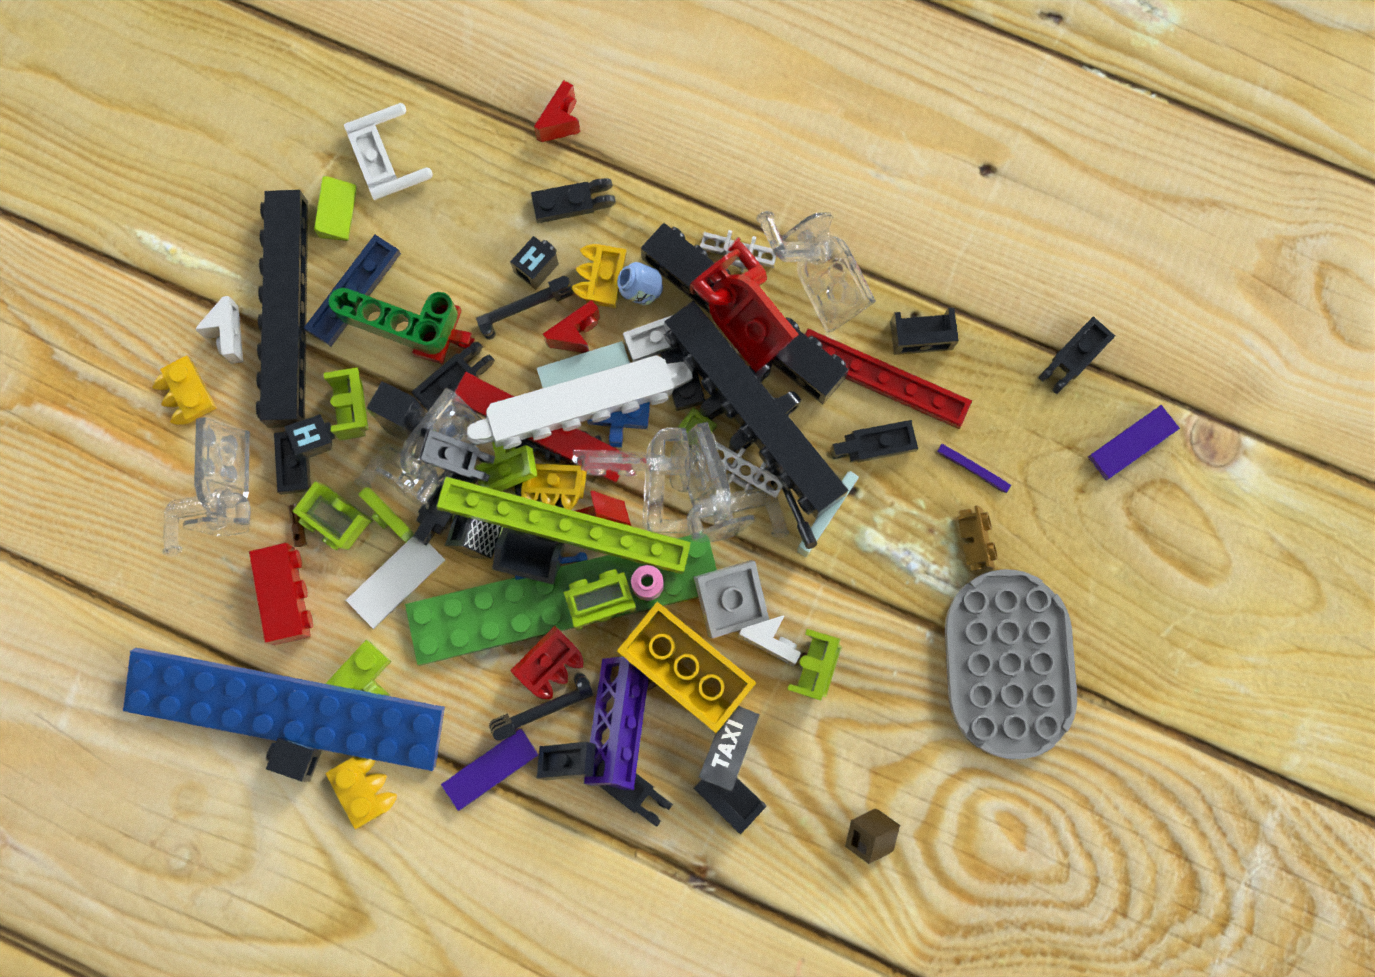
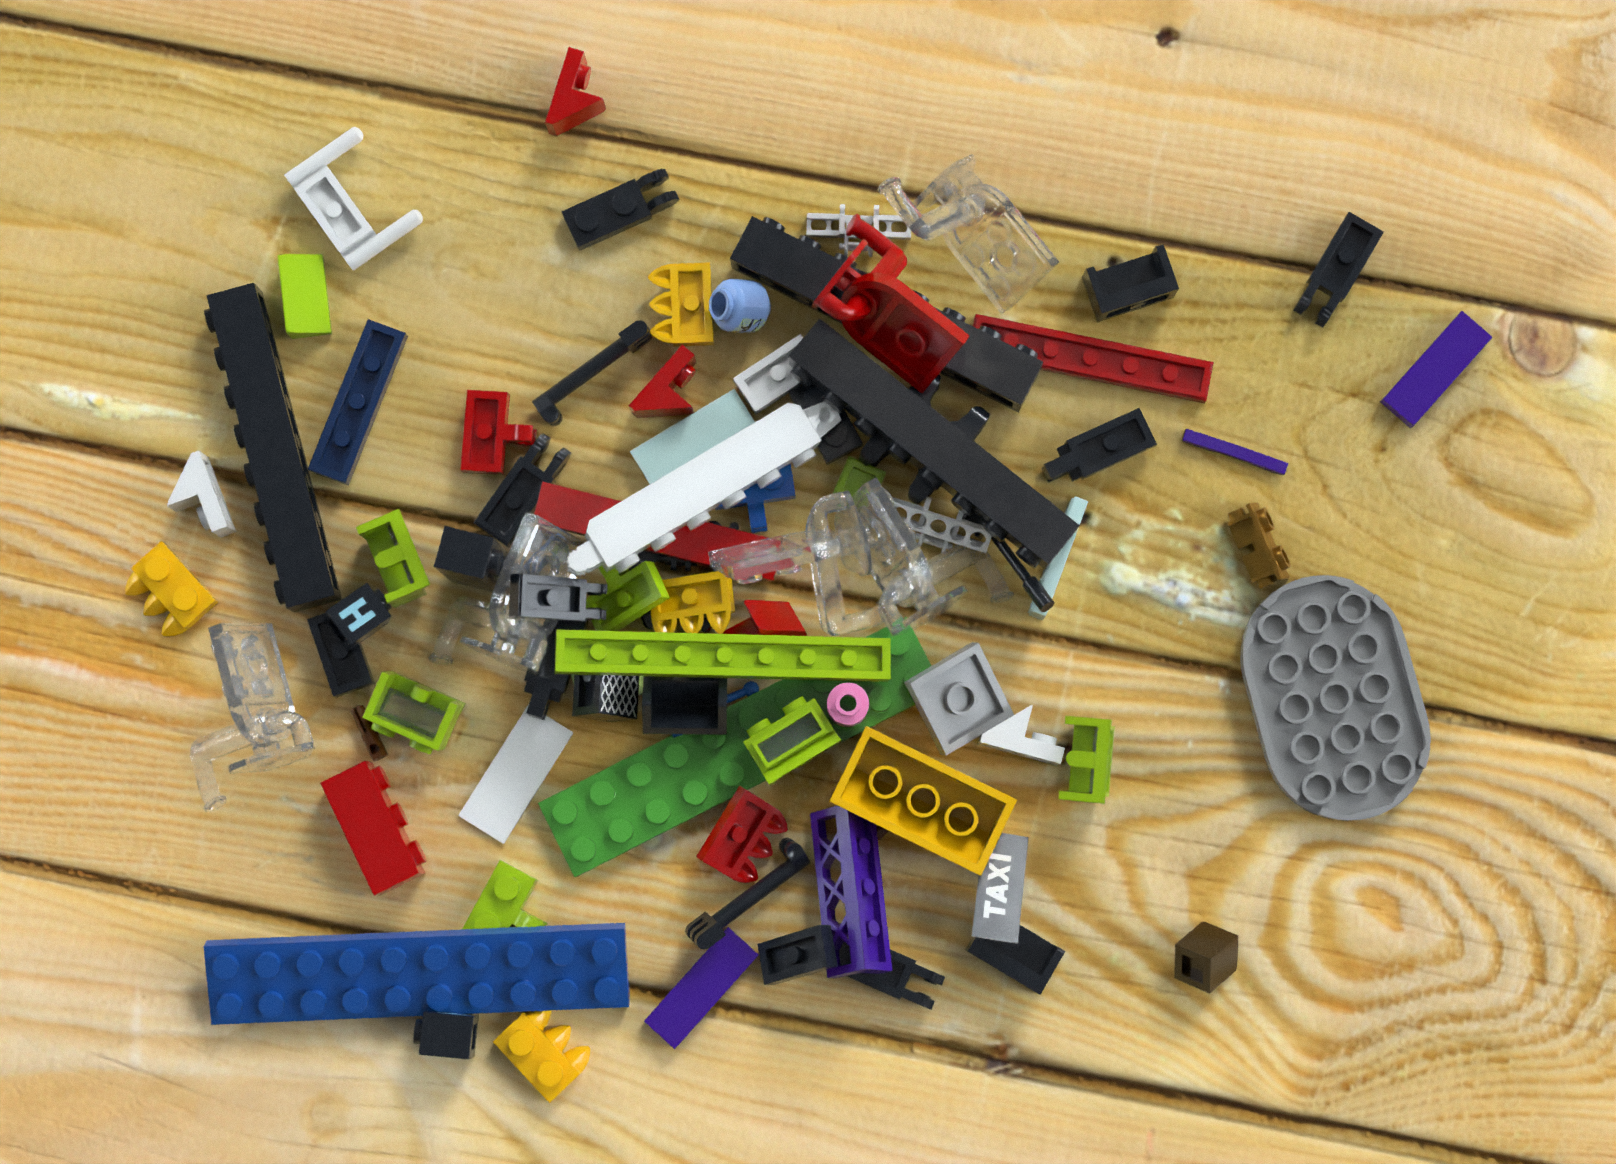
camera: 10 degrees left, 5 degrees up
(384, 515) = (482, 694): lime plate -> none
(391, 316) = (424, 427): green beam -> none
(535, 261) = (592, 307): black brick -> none

